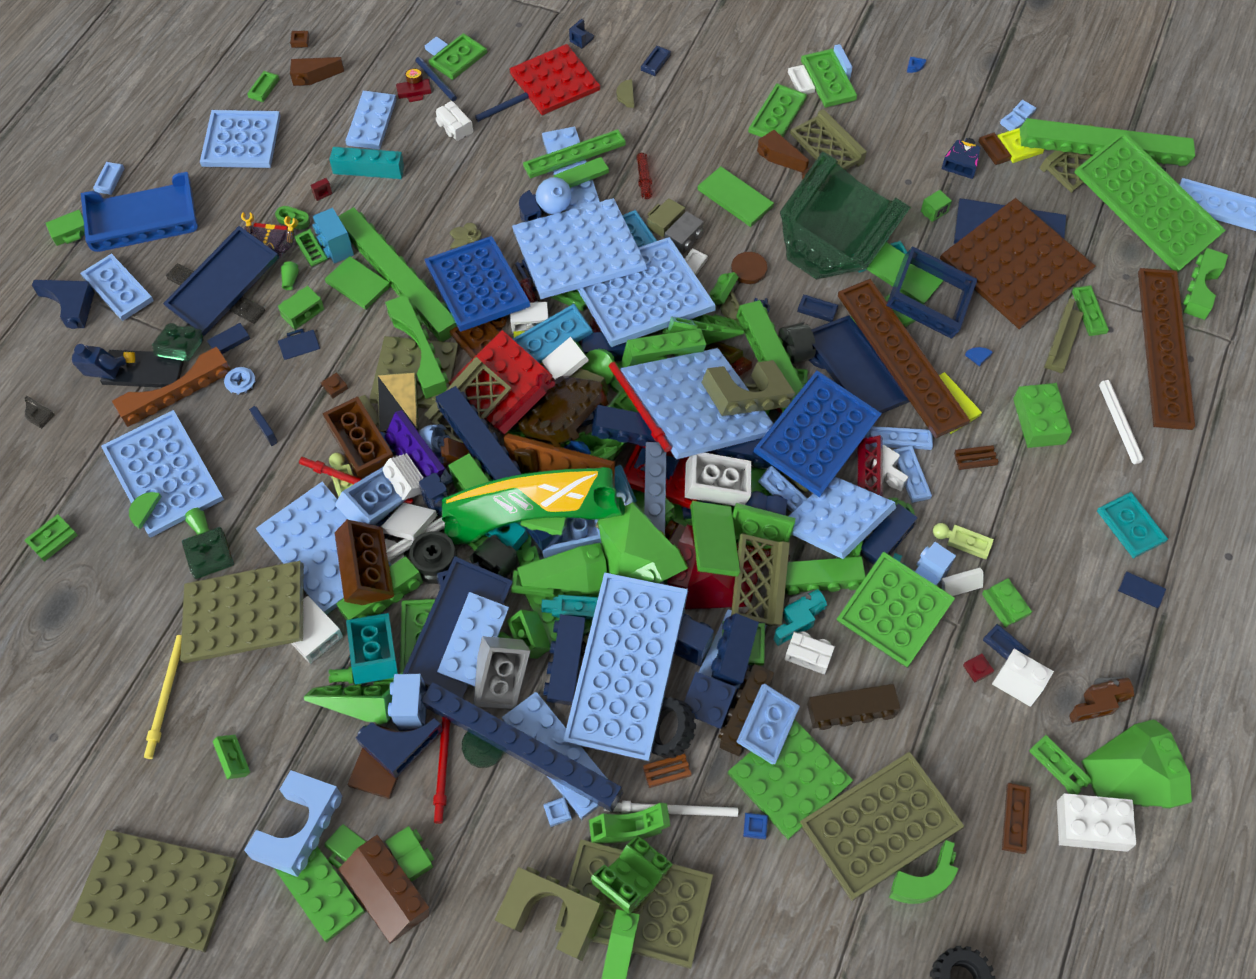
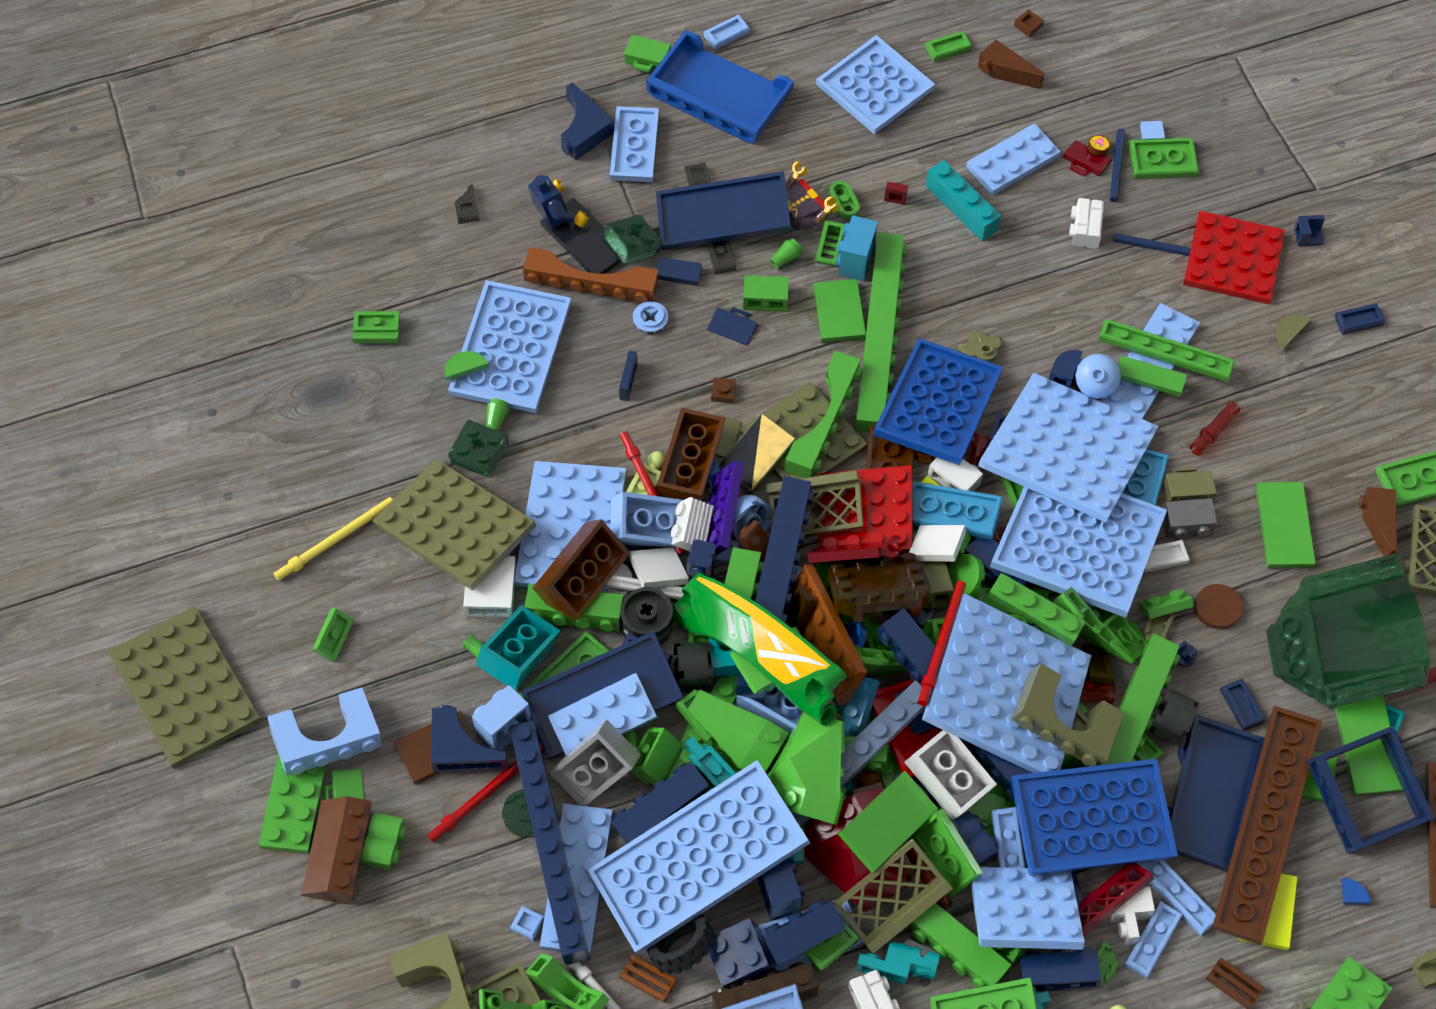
camera: 45 degrees right, 0 degrees up
(358, 701) = (466, 681): bright green wedge -> none

